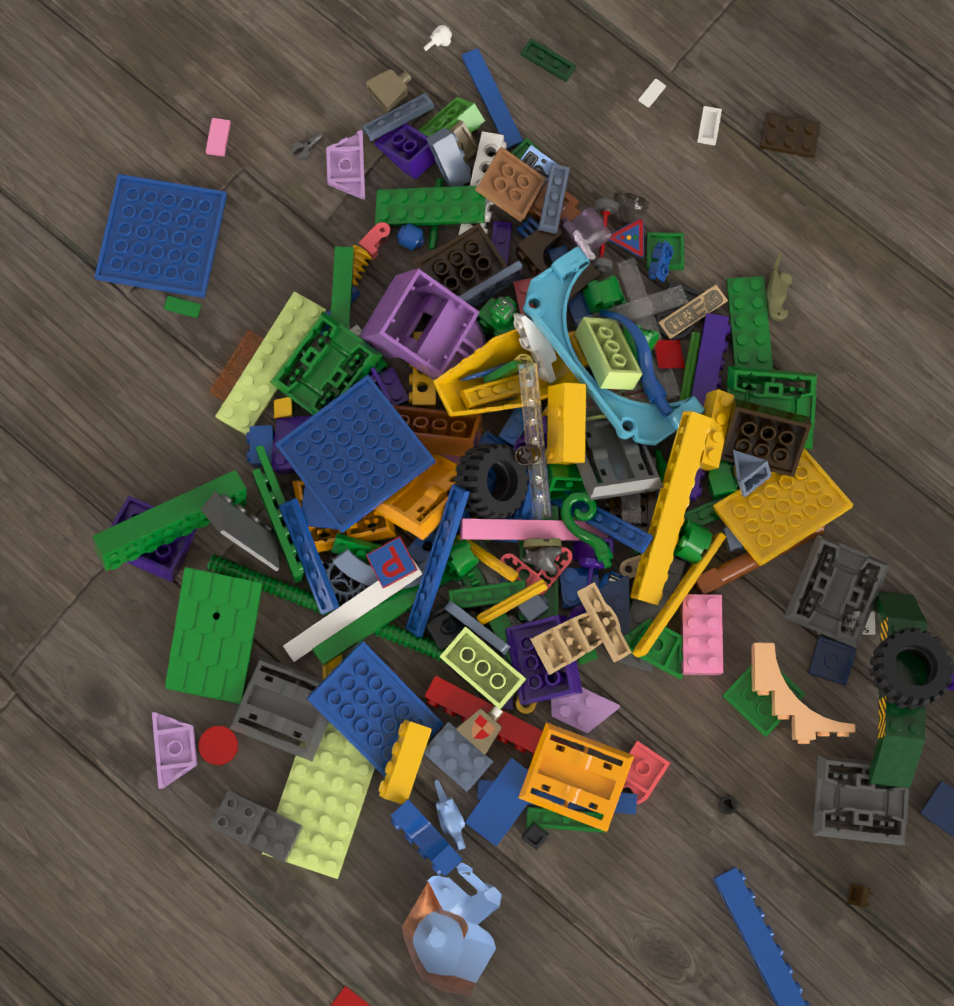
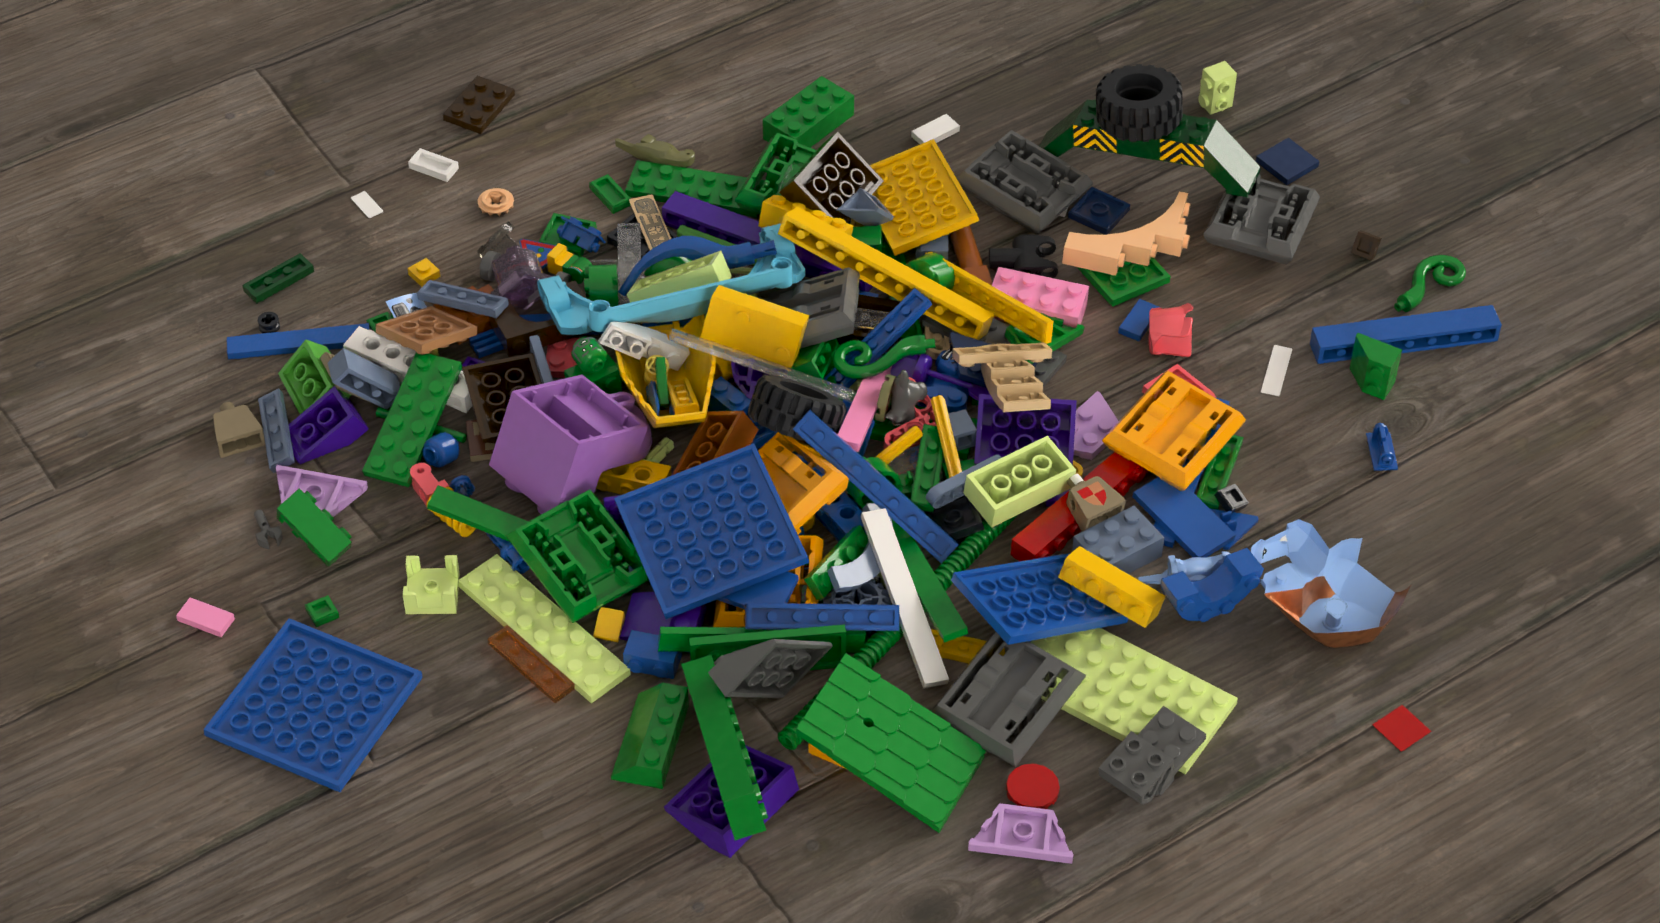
camera: 75 degrees left, 30 degrees down
(182, 306) = (422, 707): green sticker -> none
(189, 467) = (652, 735): none -> green slope
(245, 210) = (322, 611): none -> green tile
(282, 275) = (431, 588): none -> yellowish green panel
(304, 176) = (314, 526): none -> green wedge
(380, 263) = (464, 481): none -> blue bush
(391, 562) = (861, 532): blue piece -> none
(440, 36) = (193, 368): white piece -> none
(500, 75) = (265, 318): none -> black bush
(512, 840) = (1237, 522): none -> blue piece
(523, 456) = (781, 359): dark brown wheel -> none
(590, 160) = (423, 272): none -> yellow plate
(622, 262) = (561, 260): none -> leg
(625, 948) = (1381, 448): none -> blue hinge
(679, 178) = (495, 195): none -> light nougat gear
(694, 845) = (1276, 370): none -> white sticker
(700, 750) = (1170, 331): none -> coral piece
(706, 927) = (1374, 365): none -> green slope
(713, 721) = (1137, 321): none -> blue tile
(722, 268) = (610, 193): none -> green tile
(733, 803) = (1238, 324): black bush -> none
(751, 611) = (1026, 255): none -> black connector
(816, 948) = (1414, 296): none -> green plant
(858, 395) = (811, 113): none -> green brick
(882, 502) = (936, 129): none -> white tile

